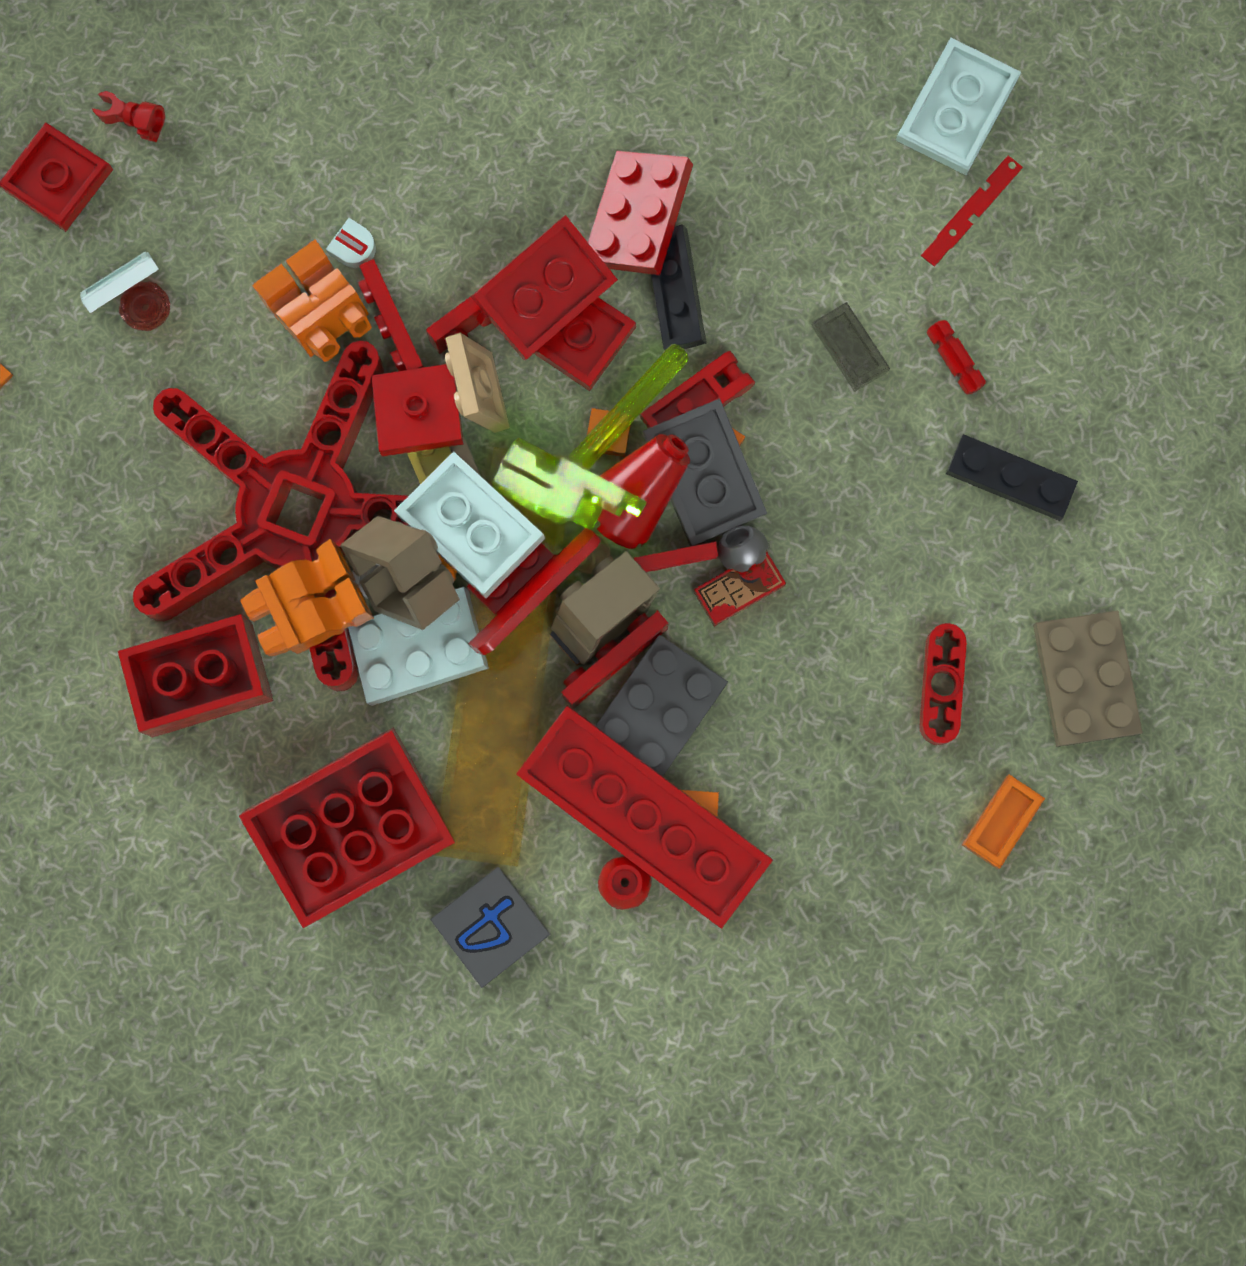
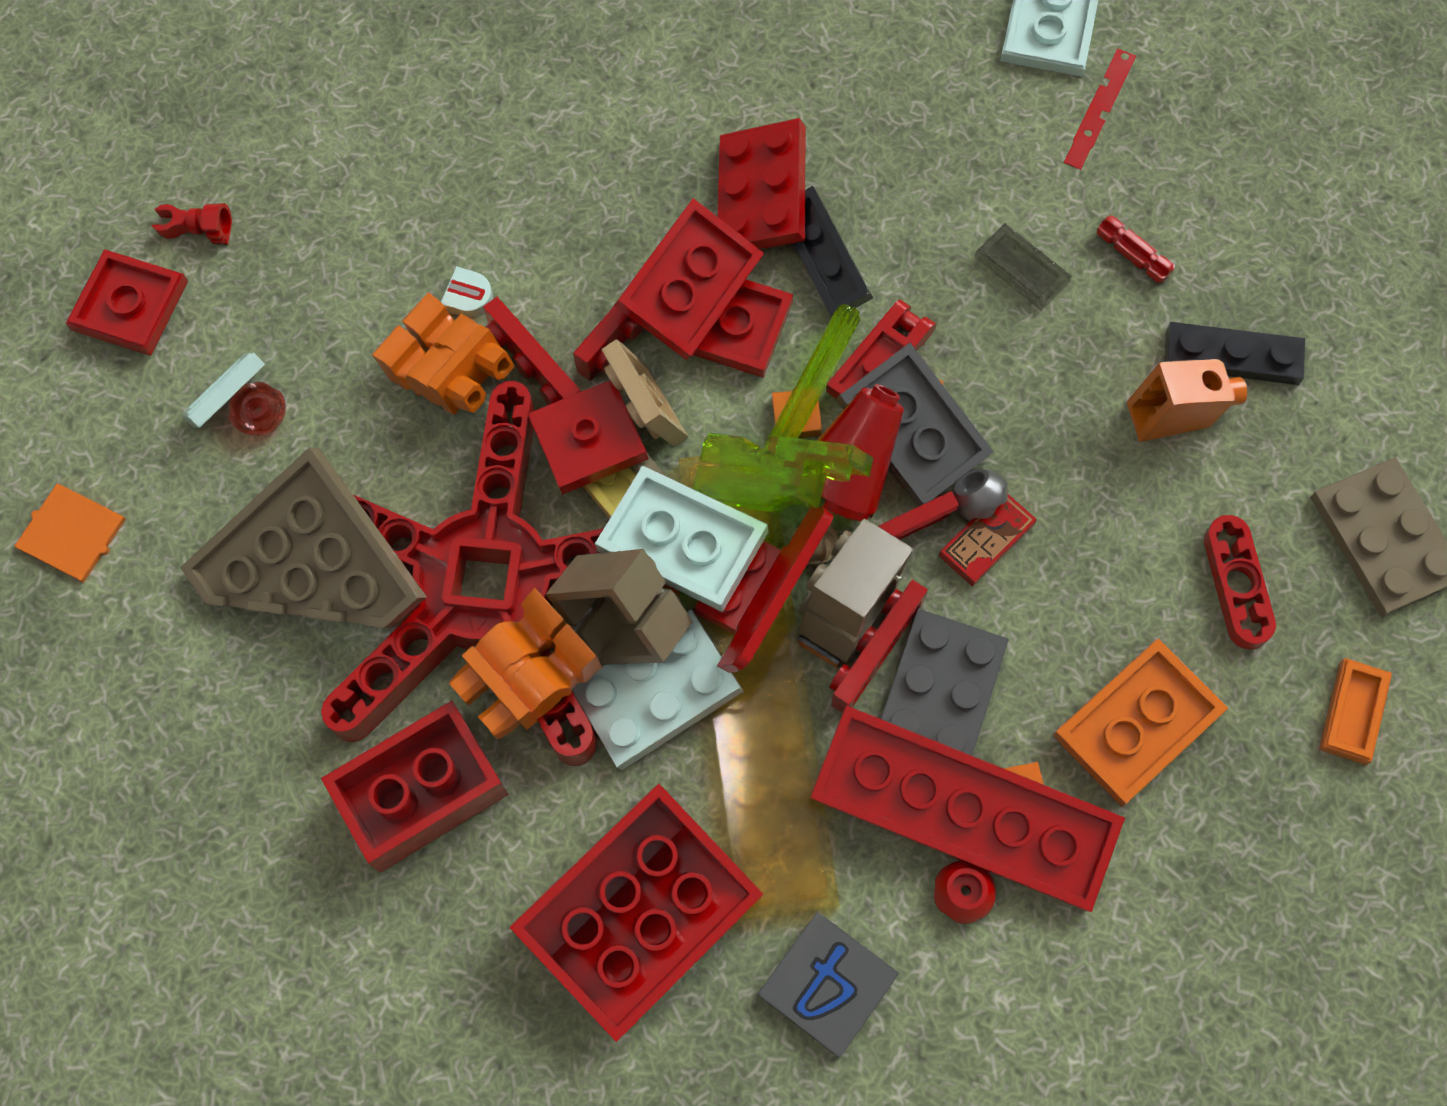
camera: 15 degrees left, 10 degrees down
(152, 451) = (305, 553): none -> dark tan plate
(816, 782) = (1140, 722): none -> orange plate
(949, 510) = (1183, 398): none -> orange torso

